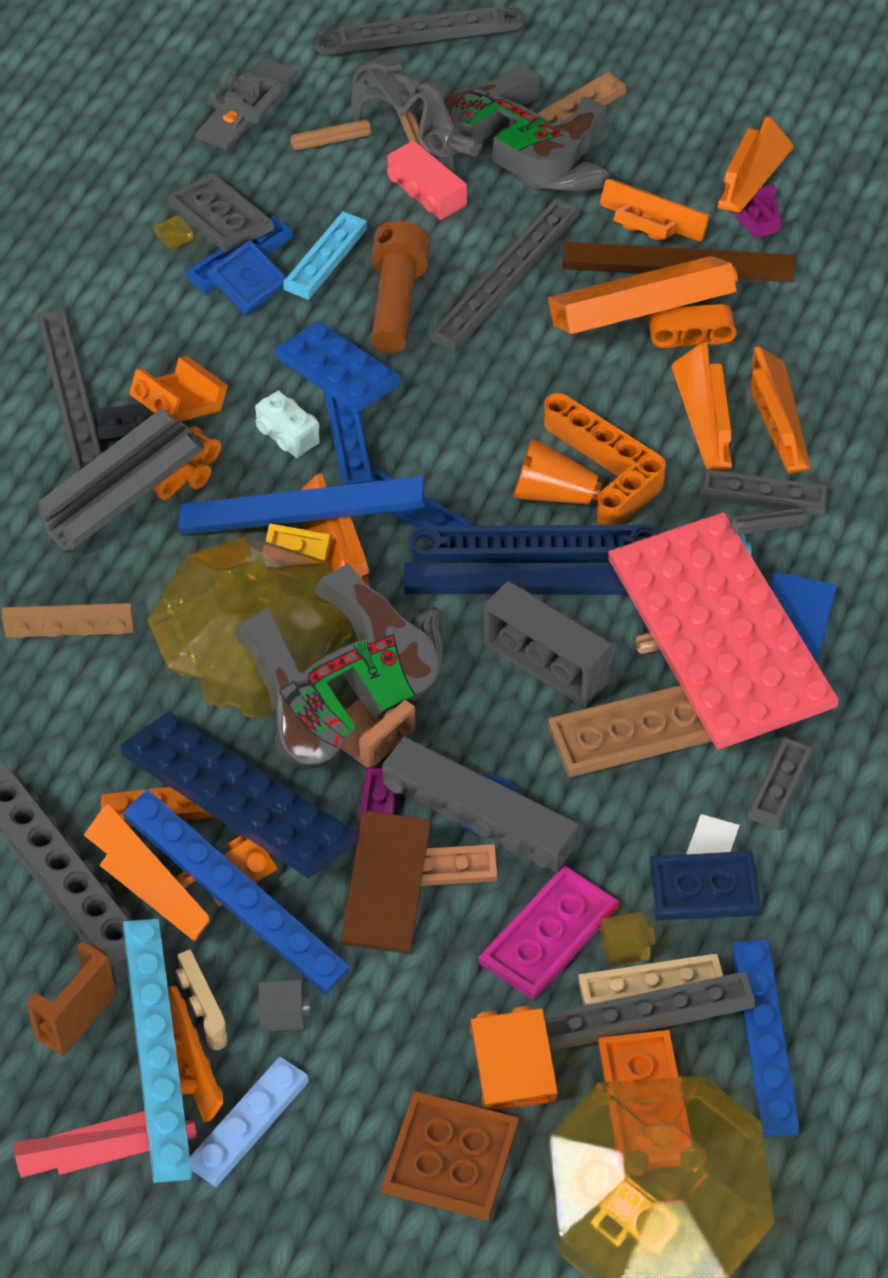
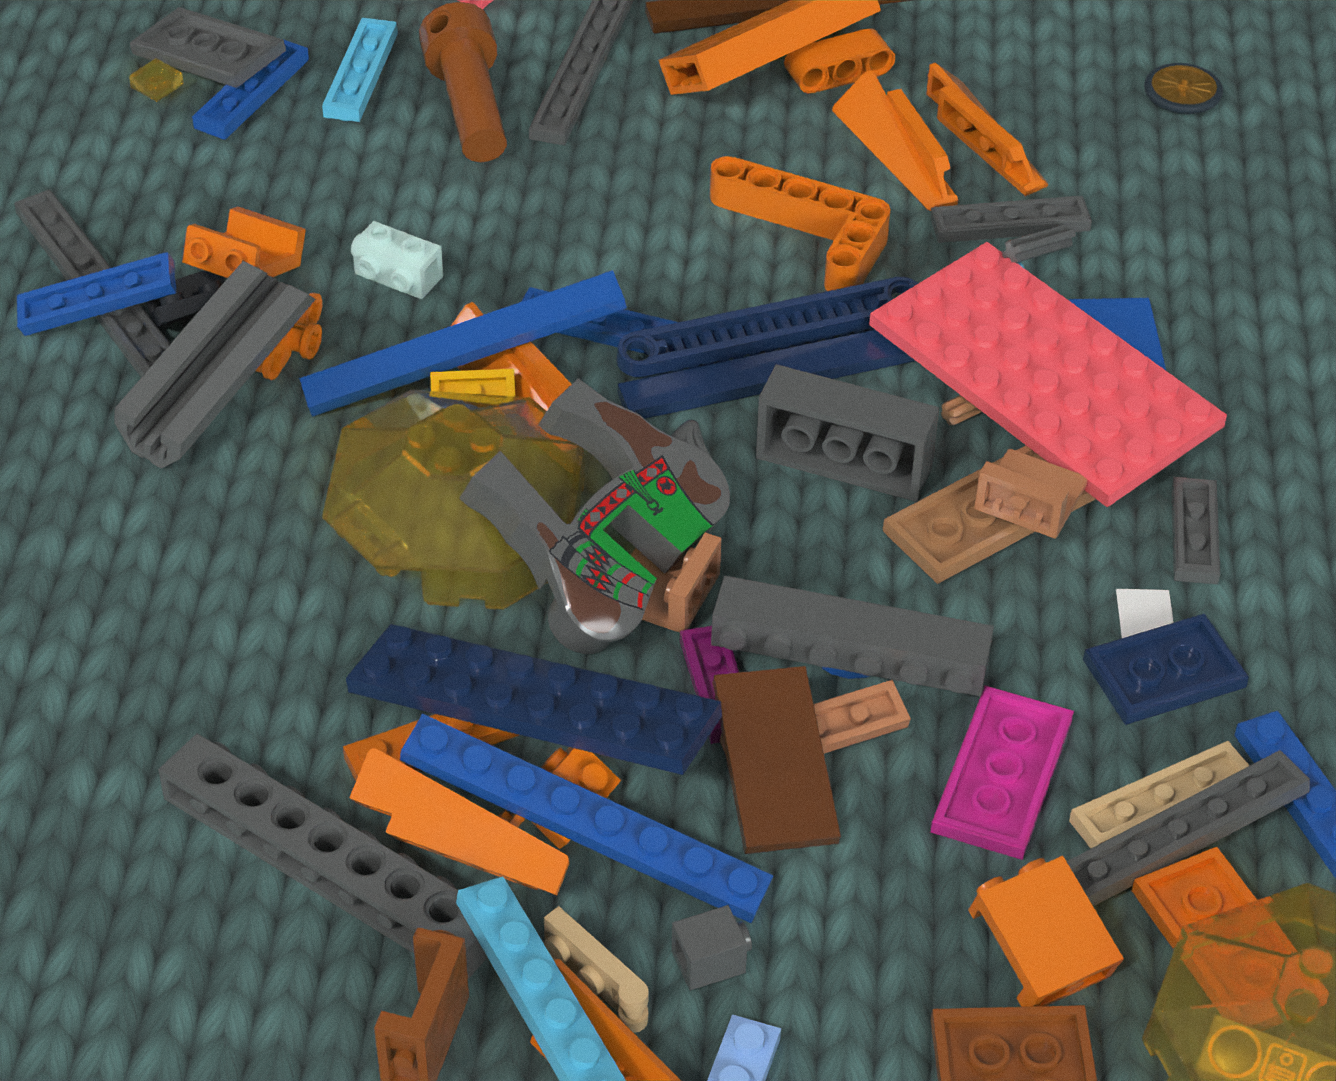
camera: 20 degrees left, 5 degrees down
(62, 405) = (96, 294): none -> blue plate
(68, 620) = (208, 544): medium nougat plate -> none
(247, 277) = (273, 109): blue tile -> none
(337, 366) = (433, 183): blue plate -> none
(349, 443) = (469, 243): blue tile -> none
(554, 478) = (759, 249): orange cone -> none
(626, 939) = (1106, 753): clear yellow brick -> none
(659, 724) = (1029, 492): none -> nougat bracket

